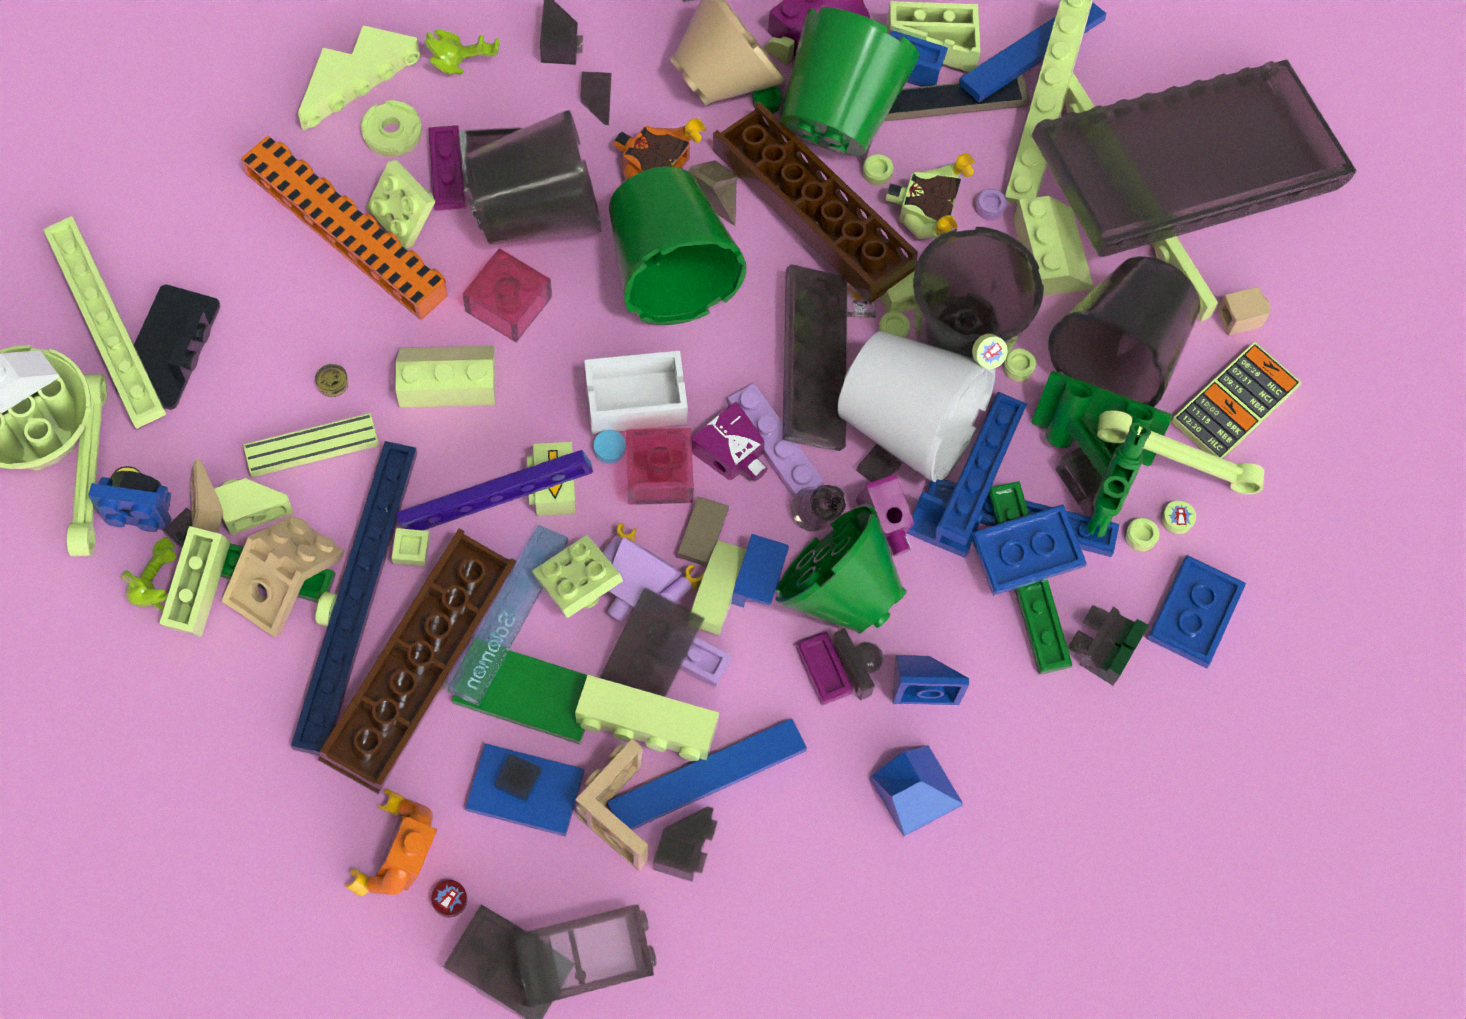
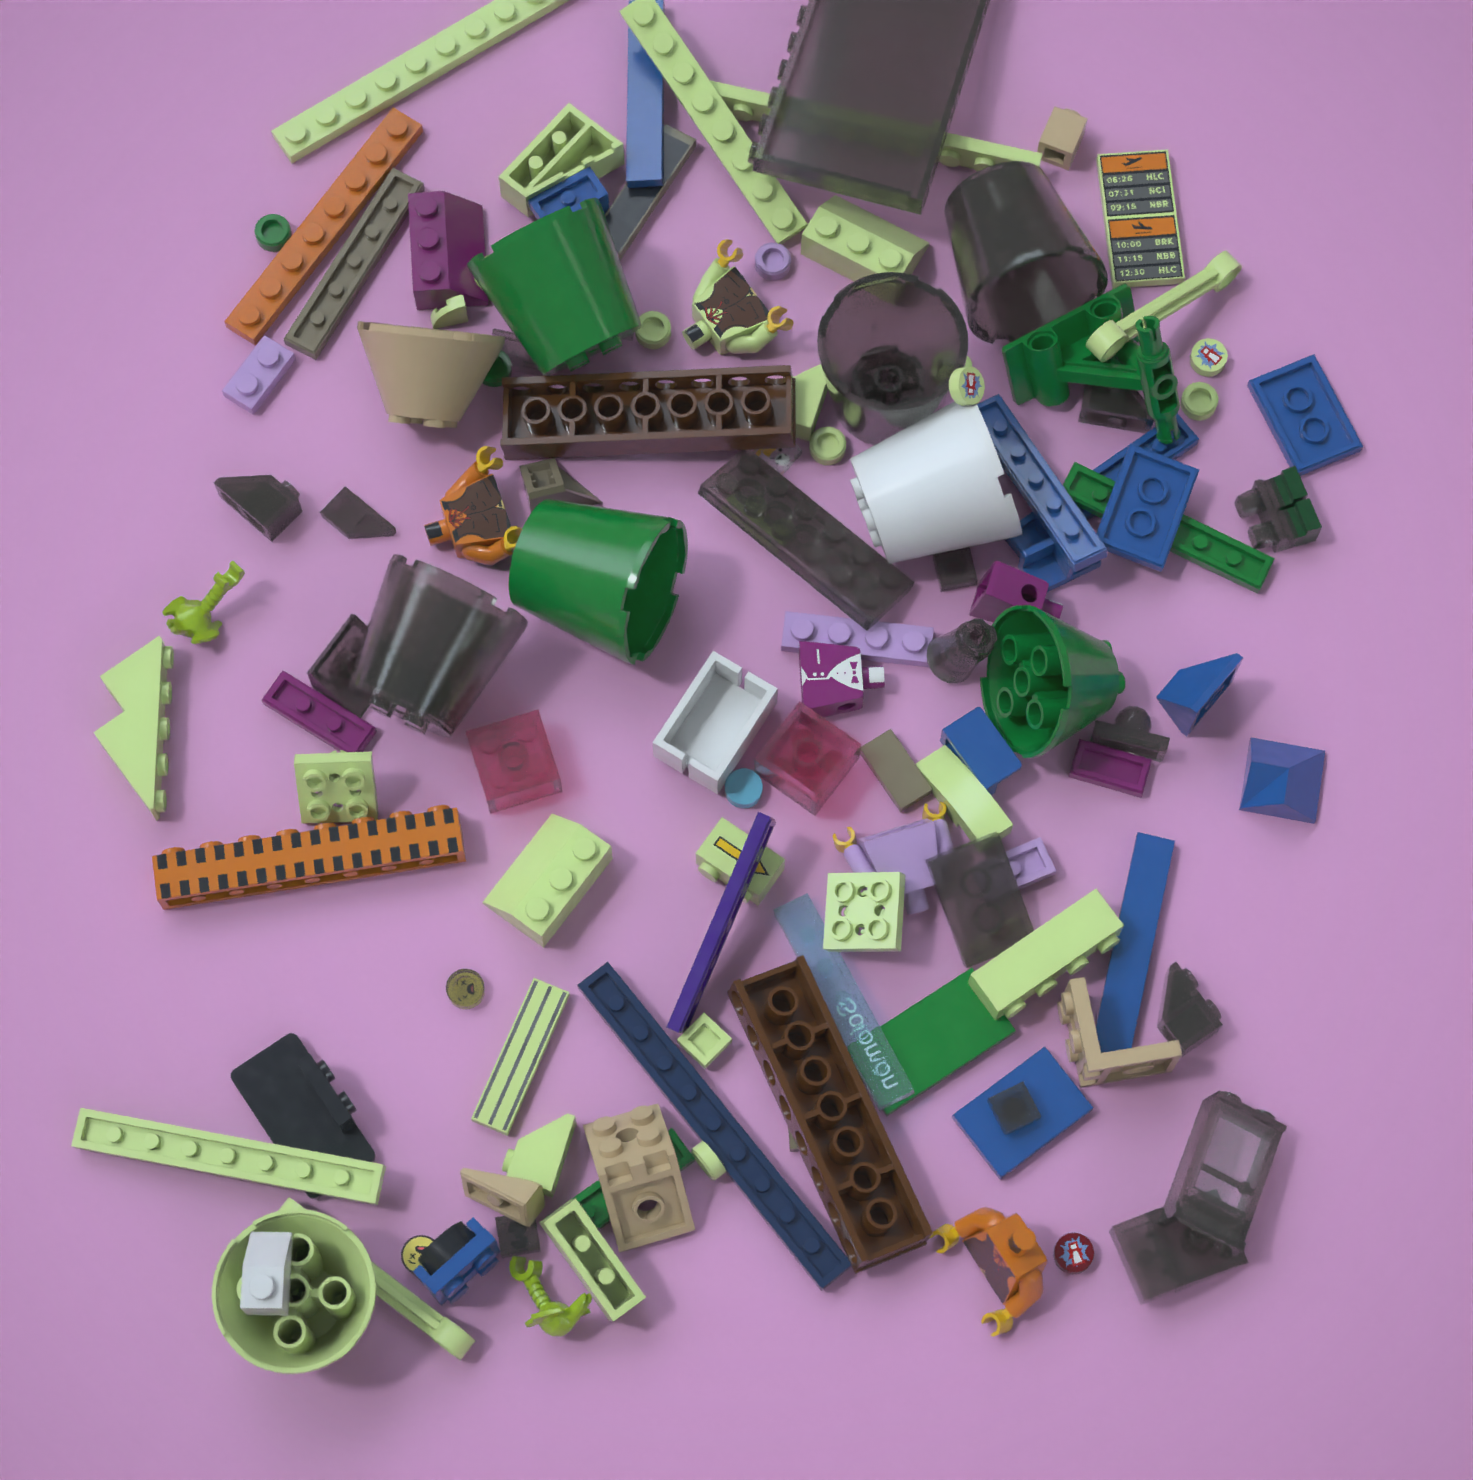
camera: 45 degrees left, 5 degrees up
(396, 142) = (235, 755): yellowish green tile -> none

